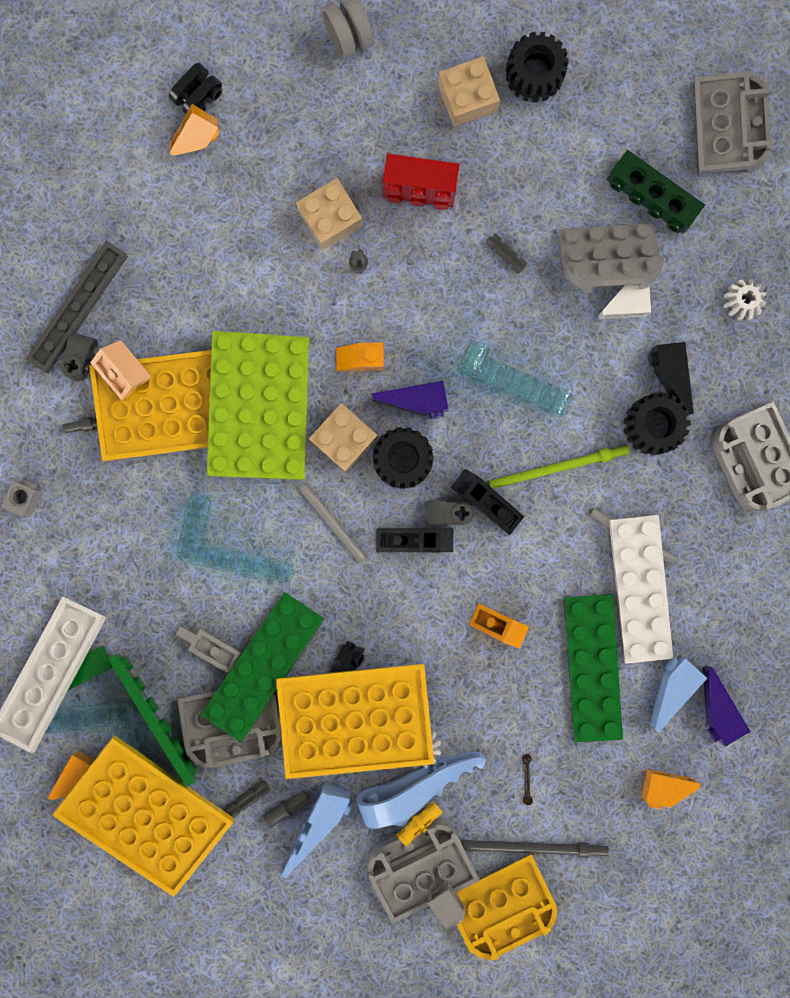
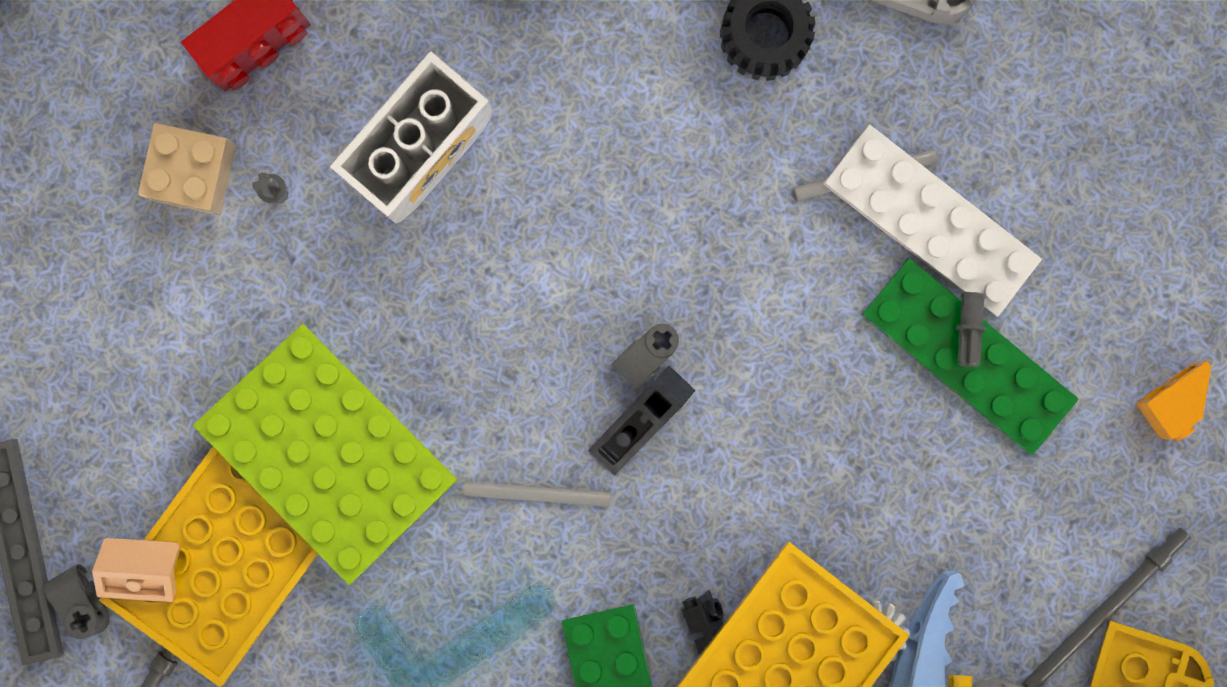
camera: 45 degrees left, 0 degrees up
(343, 437) = (452, 391): tan brick -> none
(360, 357) = (380, 287): light orange slope -> none
(418, 443) = (507, 335): black tyre -> none
(419, 399) = (490, 266): dark purple slope -> none
(446, 306) = (414, 139): none -> white brick
(487, 501) = (674, 298): black slope -> none
(499, 626) = (825, 417): light orange slope -> none
(506, 253) = (419, 14): dark grey axle -> none
(510, 380) = (562, 146): clear light blue beam -> none
(527, 798) = (1046, 567): dark brown hinge -> none
(603, 455) = (746, 121): lime bar -> none
(607, 655) = (971, 329): none -> dark grey axle
(676, 687) = (1077, 284): light blue slope -> none
(721, 713) = (1152, 263): dark purple slope -> none

